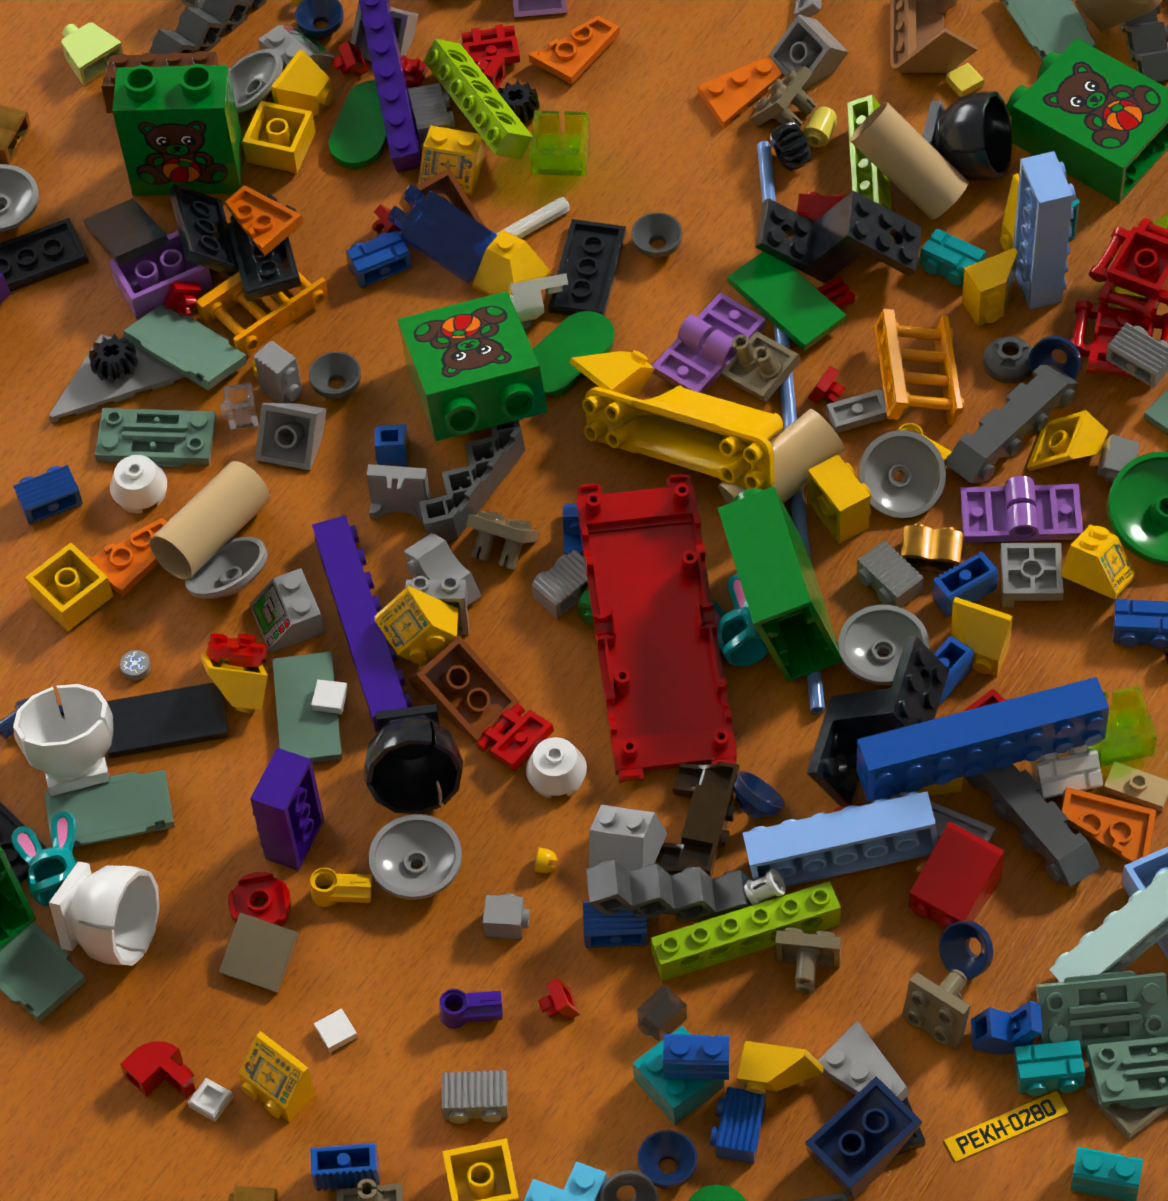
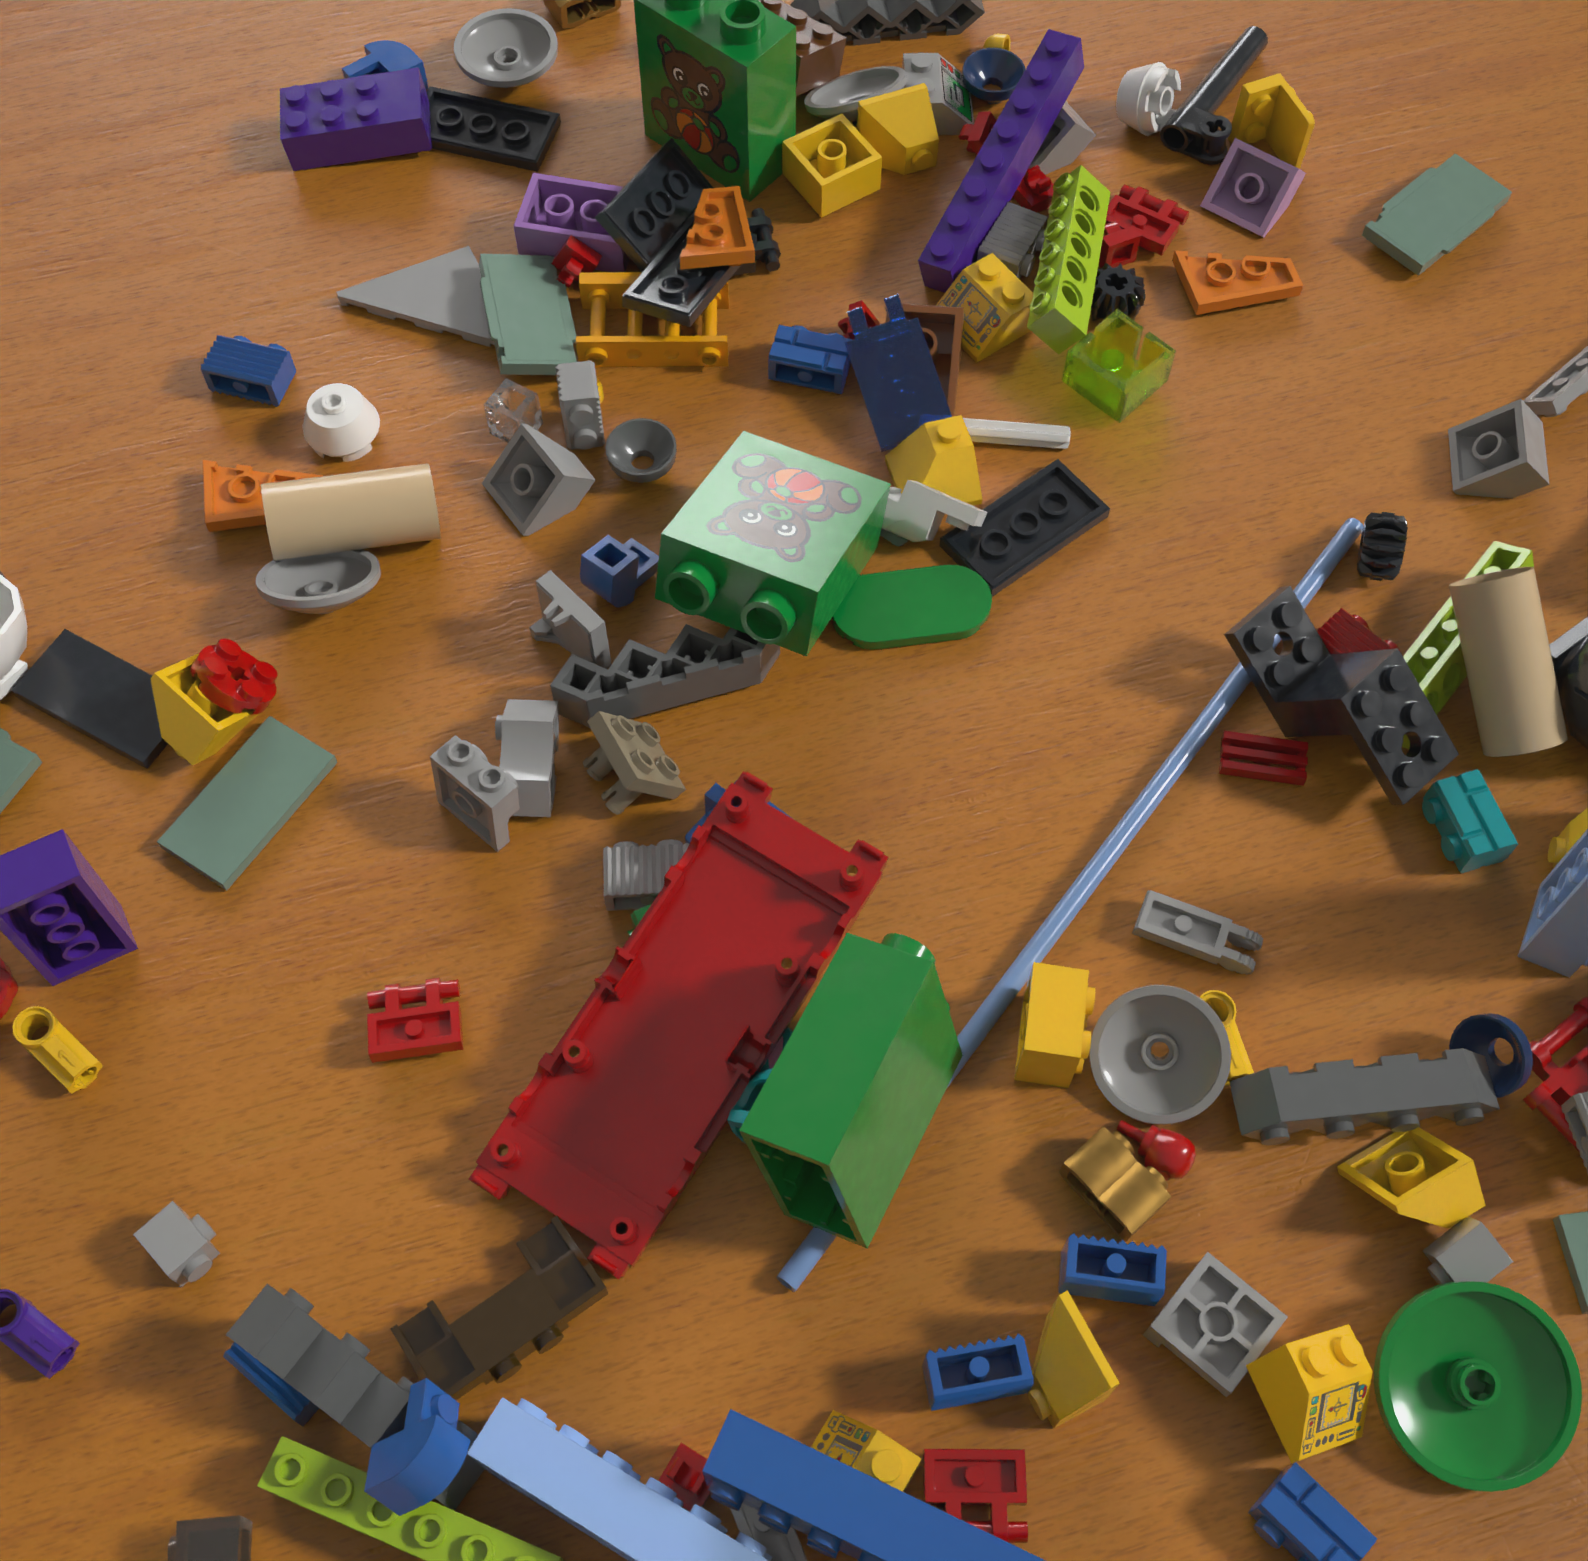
camera: 35 degrees right, 5 degrees up
(69, 586) = (157, 480): yellow brick -> none
(113, 358) = (444, 275): black gear -> none
(126, 231) = (583, 158): black tile -> none
(135, 665) = (142, 614): light grey tile -> none
(163, 436) = (413, 388): sand green piece -> none
(287, 611) = (339, 675): light grey slope -> none
(329, 696) = (273, 807): white tile -> none
(357, 612) = (391, 752): dark purple brick -> none
(360, 128) = (911, 218): green tile -> none
(411, 761) = (258, 956): black plate -> none
(412, 842) = (139, 1061): light grey dish -> none
(418, 625) = (427, 800): yellow slope -> none
(463, 689) = (416, 916): dark orange slope -> none
(542, 861) = (294, 1209): yellow hinge -> none
(556, 768) = (419, 1100): white cone -> none
(559, 1001) = (125, 1416): red tile -> none
(616, 371) = (932, 666): yellow slope -> none
(625, 836) = (387, 1273): light grey slope -> none
(656, 227) = (1137, 530): dark grey piece -> none
(688, 432) = (951, 808): yellow piece -> none
(706, 344) = (1077, 712): medium lavender plate -> none
(731, 882) = (423, 1457): none -> blue brick
(737, 89) = (1378, 441): orange wing -> none
(756, 796) = (611, 1340): dark blue piece -> none
(759, 365) = (1112, 781): dark tan plate -> none
(765, 887) = (472, 1499): white bush -> none
(781, 95) = (1428, 476): dark tan plate -> none
(786, 299) = (1216, 727): green tile -> none
(796, 450) = (1012, 928): tan piece -> none
(820, 127) = (1439, 548): light yellow brick -> none
(827, 387) = (1171, 868): red tile -> none
(852, 716) = (849, 1406): black bracket -> none
(877, 632) = (940, 1237): light grey dish -> none
(889, 575) = (1031, 1176): light grey brick -> none
(896, 376) = (1262, 920): light orange fence -> none
(941, 517) = (1162, 1149): none -> red piece
(989, 287) = (1485, 892): yellow slope -> none
(1004, 367) = (1424, 1016): dark grey piece -> none
(1021, 512) = (1277, 1227): medium lavender plate -> none

